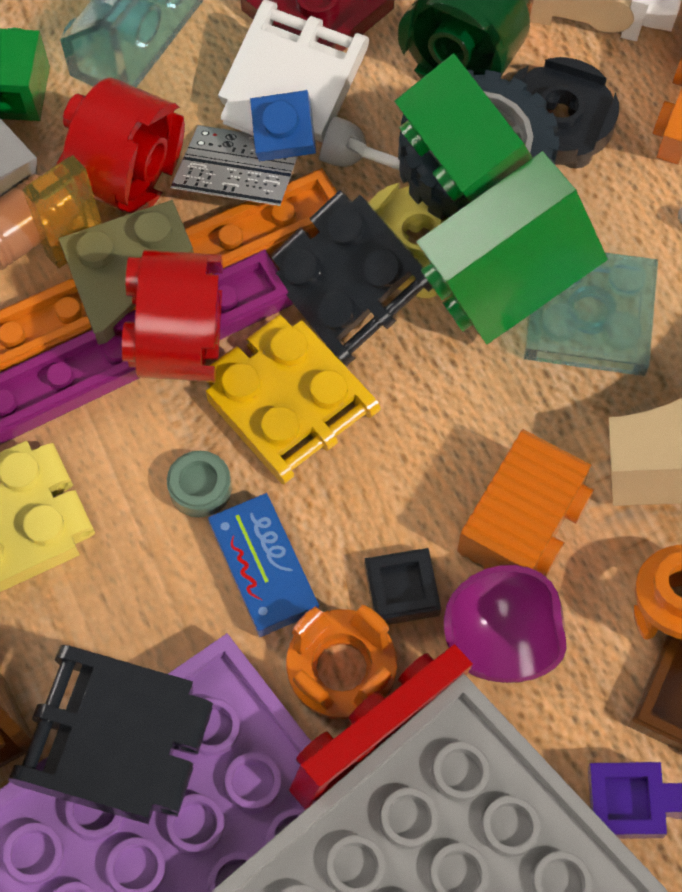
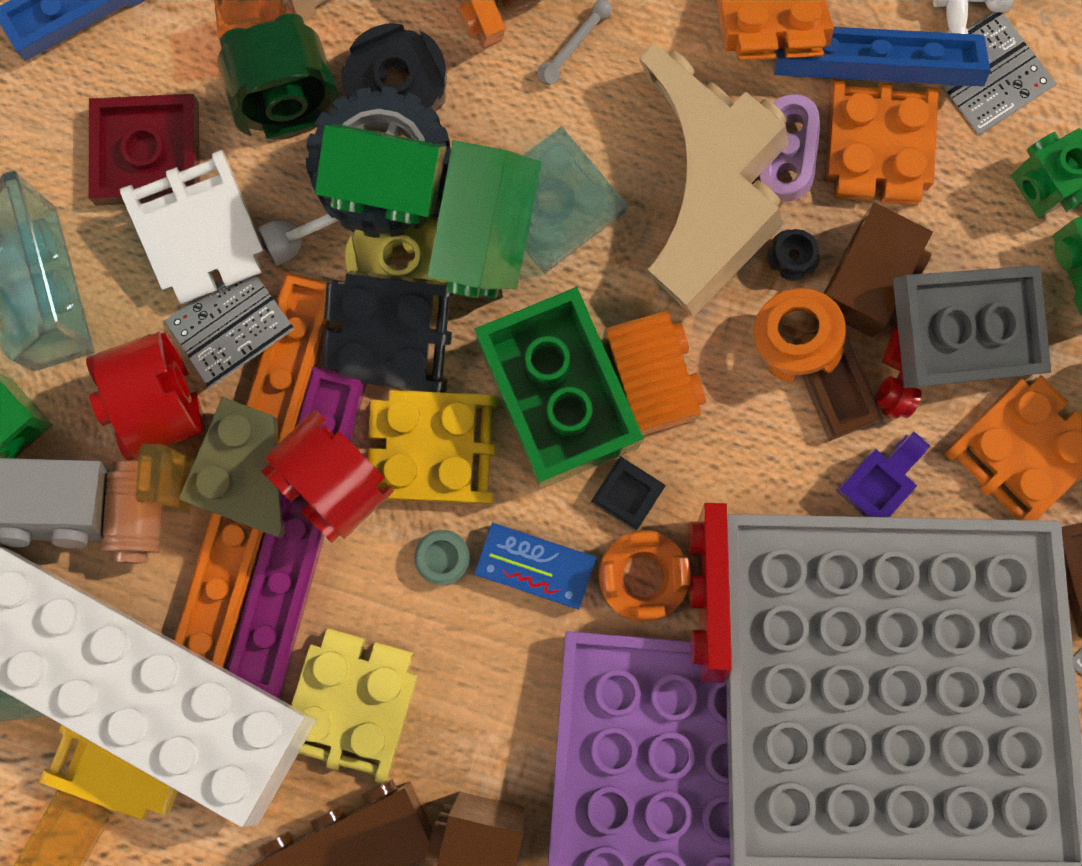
camera: 50 degrees left, 15 degrees up
(115, 737) = (582, 763): black plate -> none
(283, 125) = (233, 270): blue plate -> none
(430, 438) = (558, 388): none -> green brick
(507, 624) = (714, 456): magenta helmet -> none

